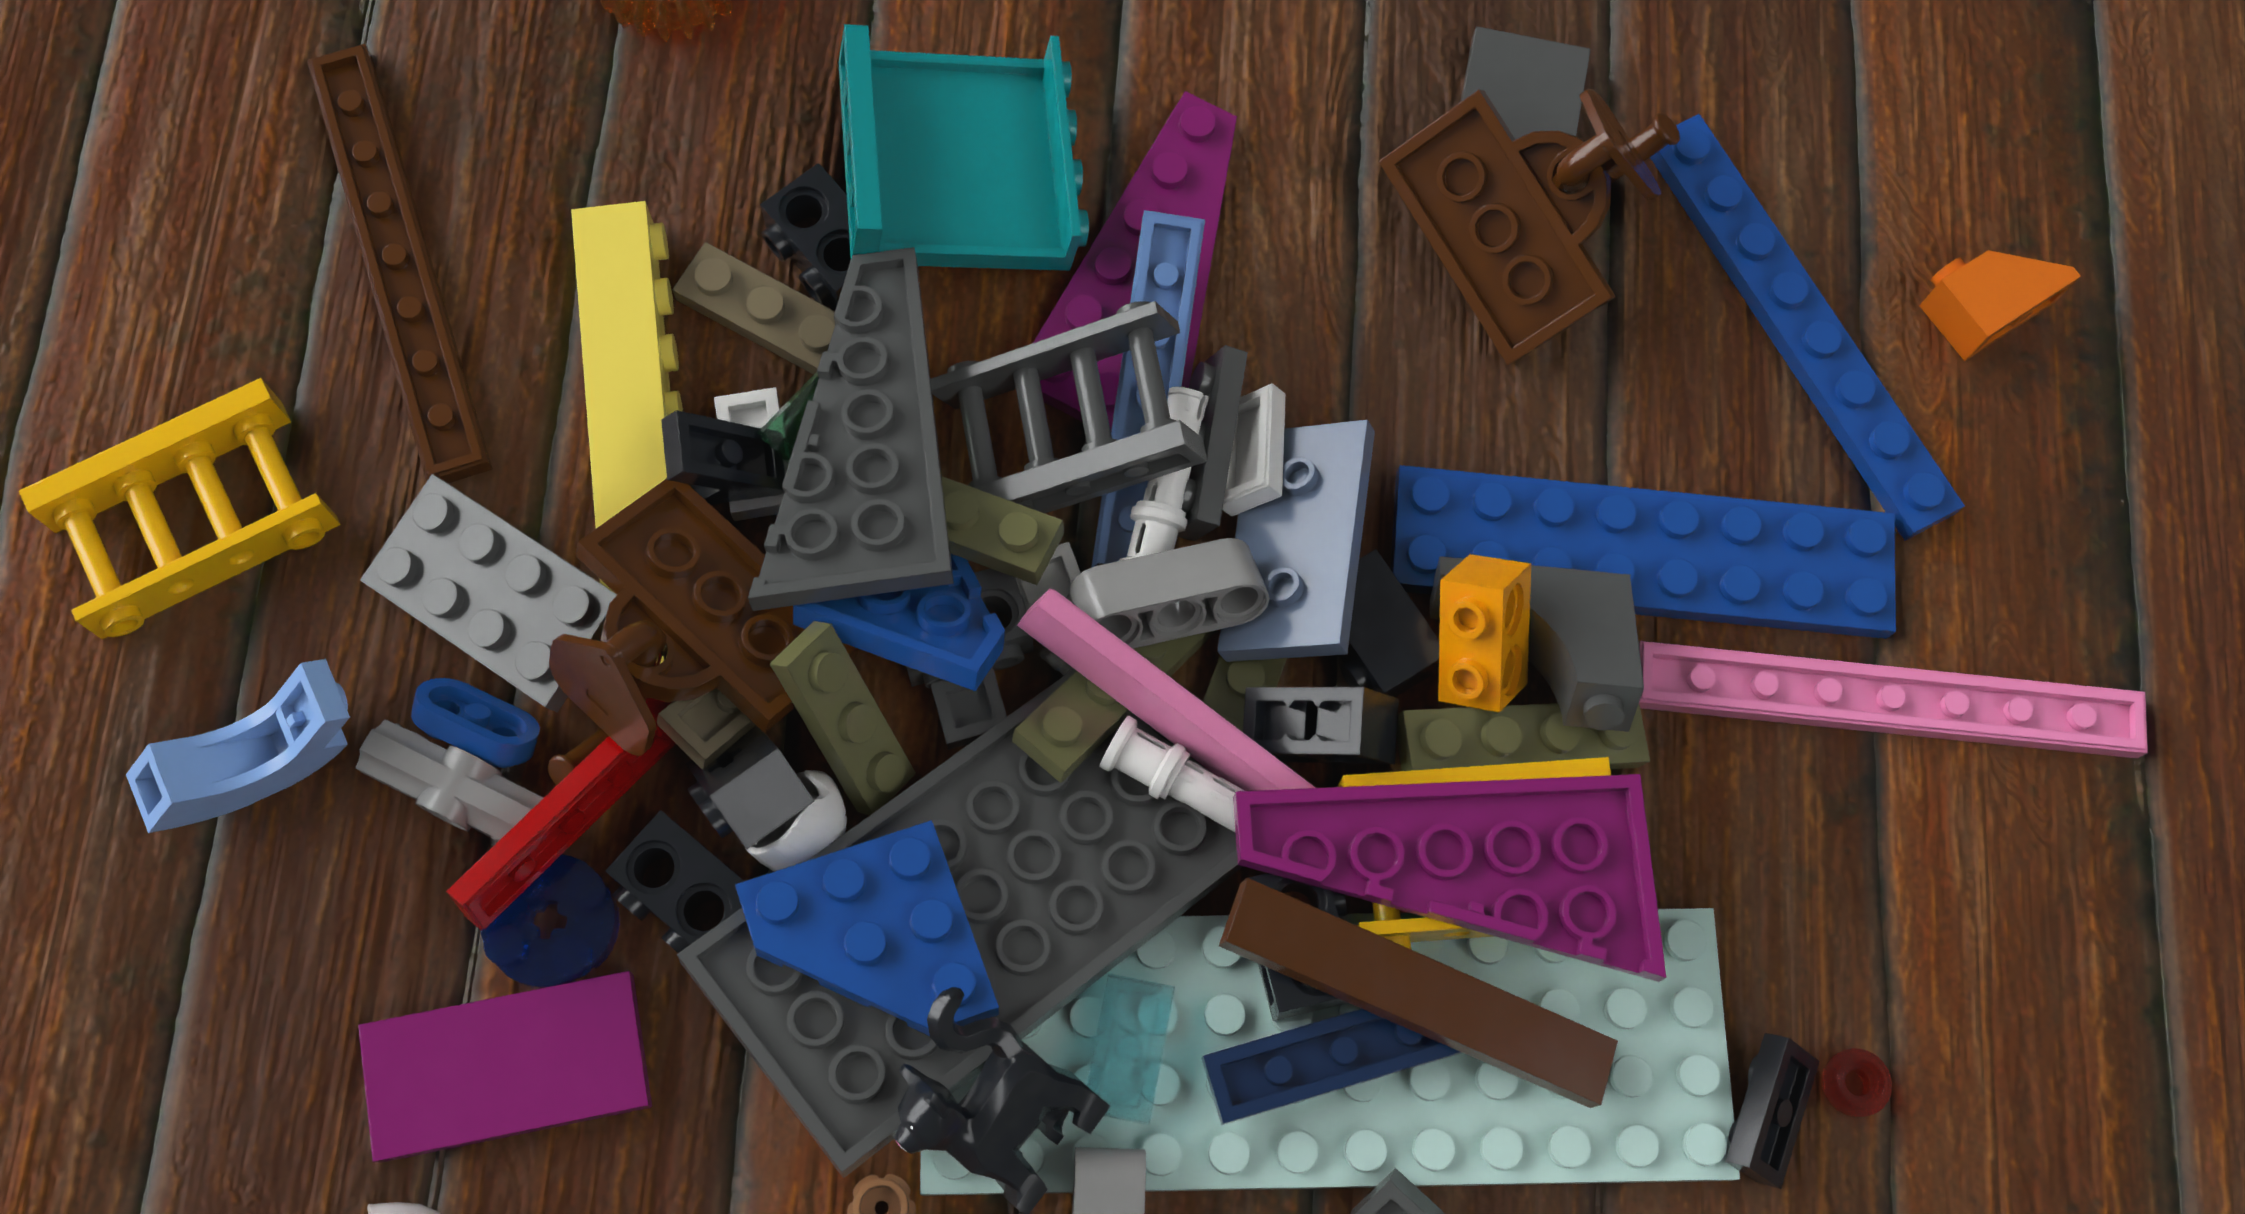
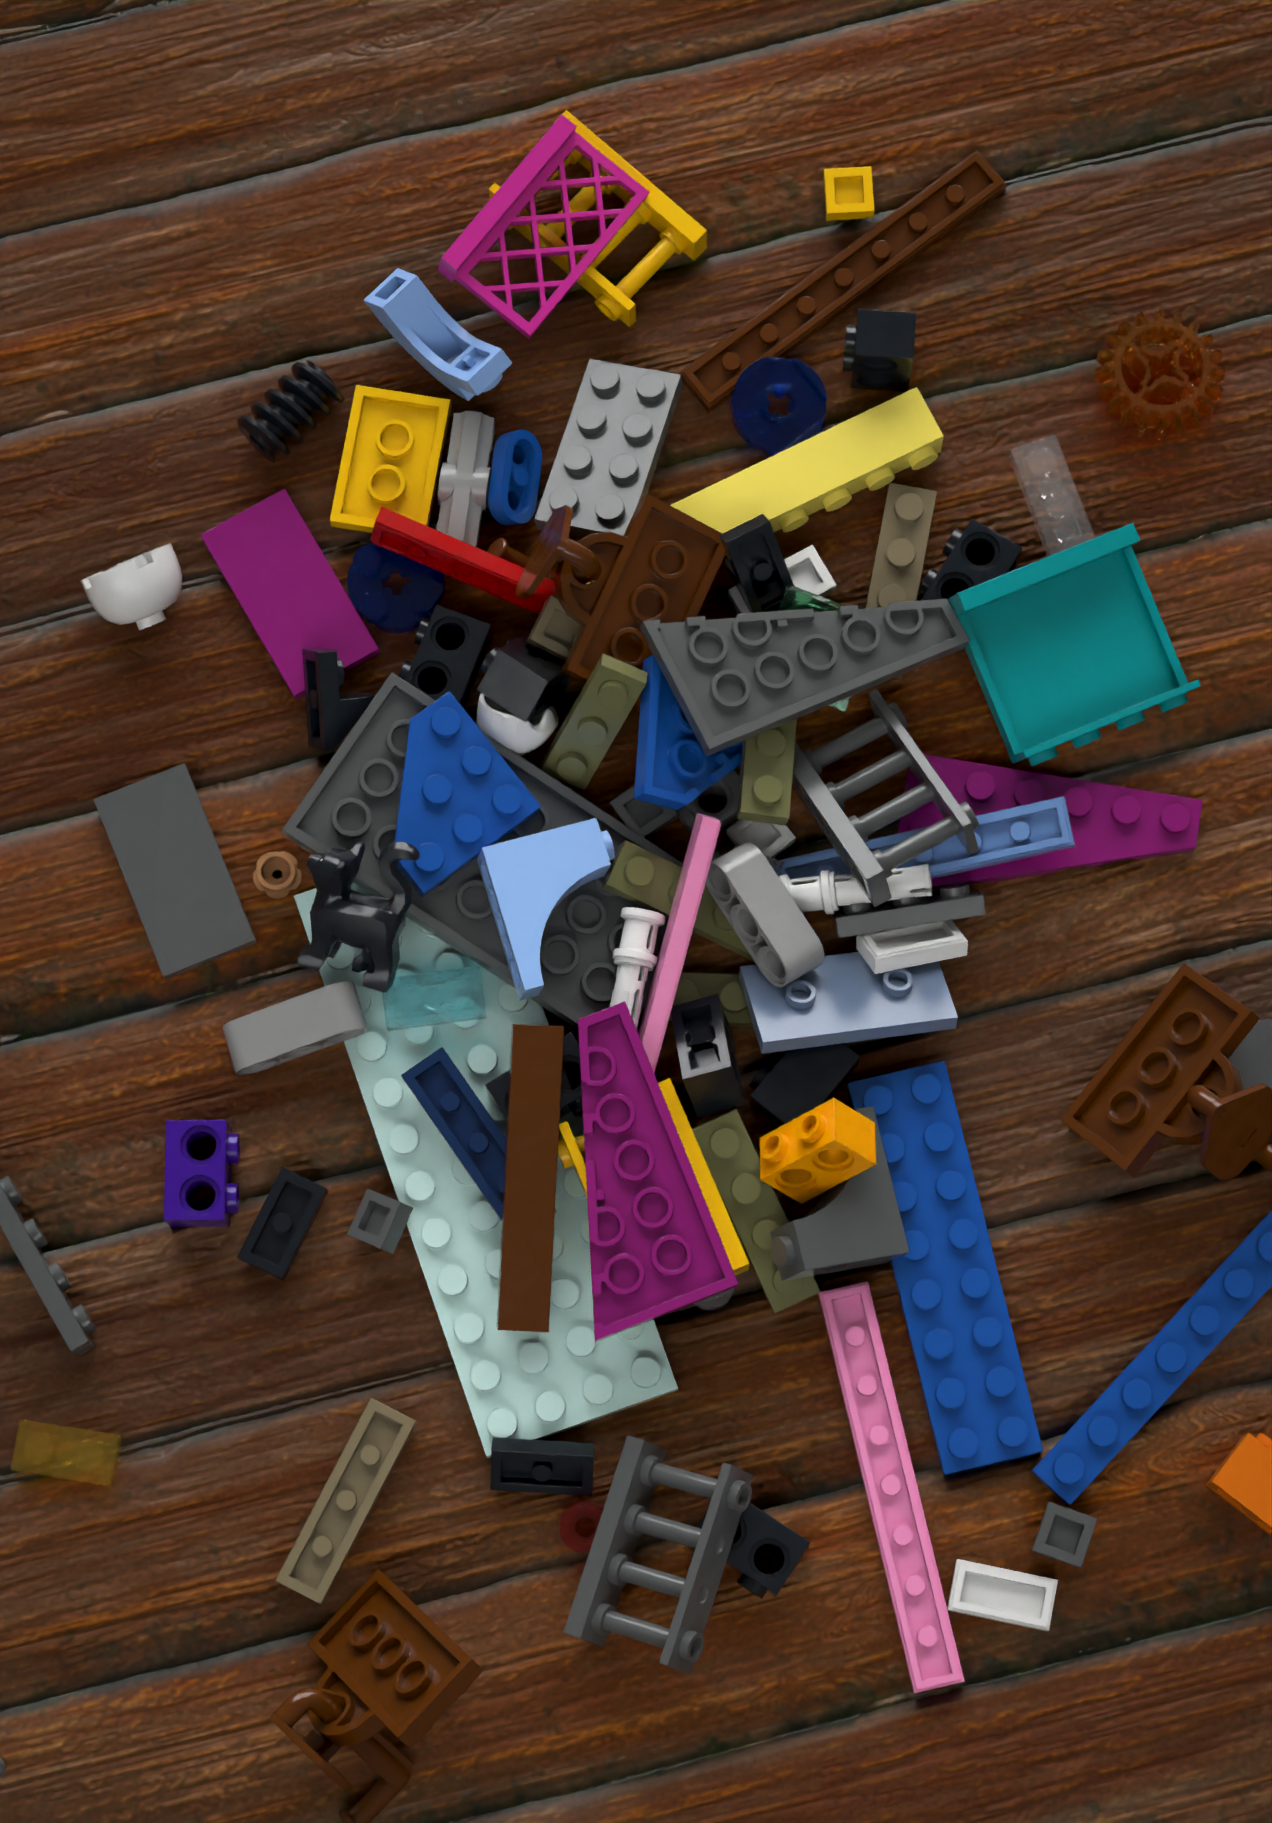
camera: 80 degrees right, 5 degrees up
(118, 607) = (513, 198): none -> dark pink fence
(251, 982) = (289, 409): none -> black piece
(292, 213) = (848, 193): none -> yellow plate
(377, 872) = (389, 457): none -> yellow plate
(508, 230) = (880, 350): none -> black brick
(527, 412) = (781, 378): none -> clear blue plate
(688, 1063) = (327, 711): none -> black slope
(766, 127) = (1051, 495): none -> clear plate
(1037, 872) = (530, 879): none -> light blue arch
(1922, 875) = (762, 1530): none -> black brick
(1926, 1060) = (615, 1541): none -> dark grey fence
(1998, 523) = (1064, 1535): none -> dark grey plate
(2047, 617) = (1002, 1595): none -> white tile

